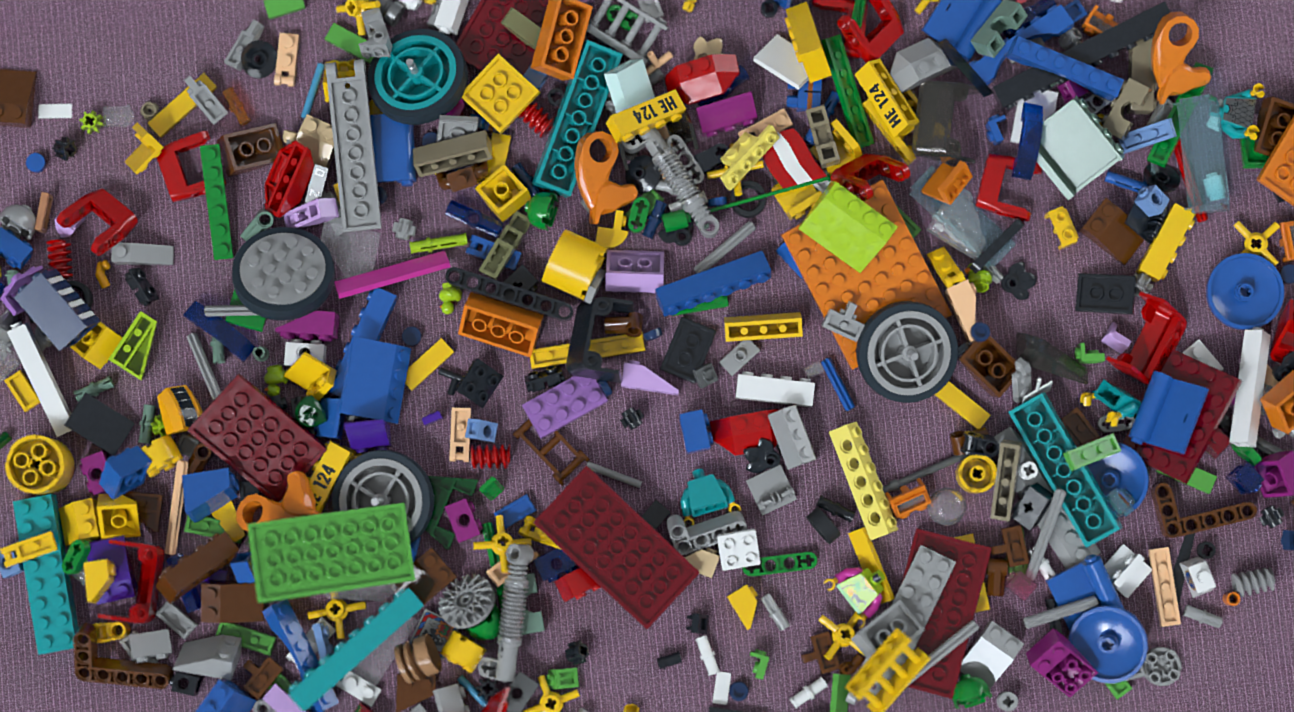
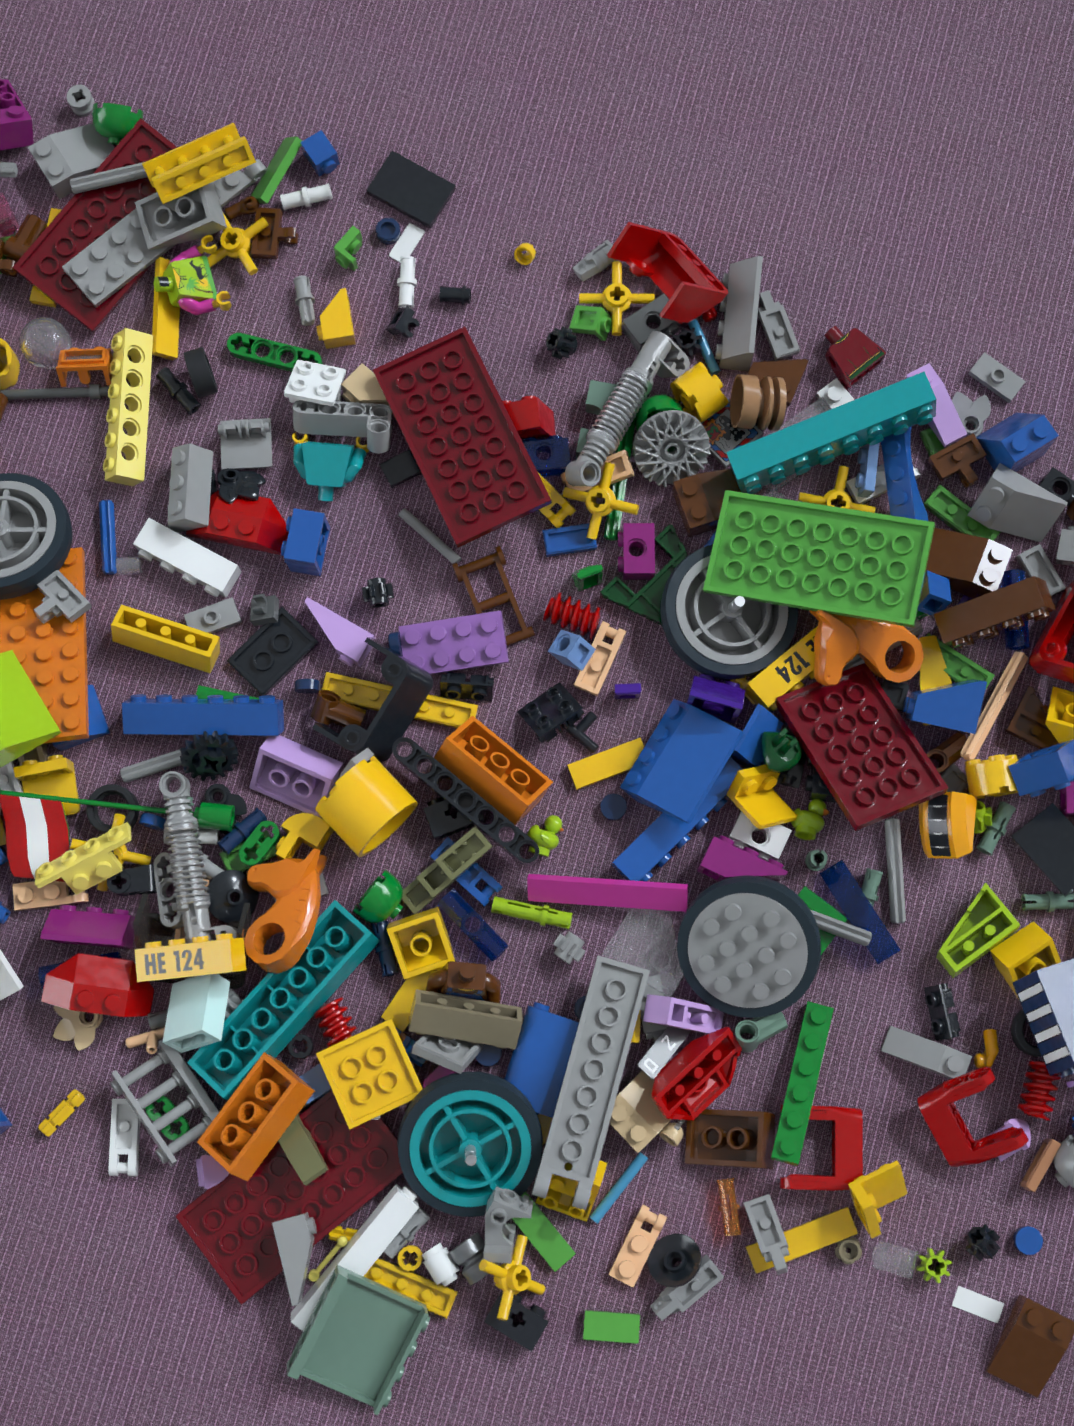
camera: 155 degrees left, 5 degrees down
(697, 258) = (209, 755): none -> black gear

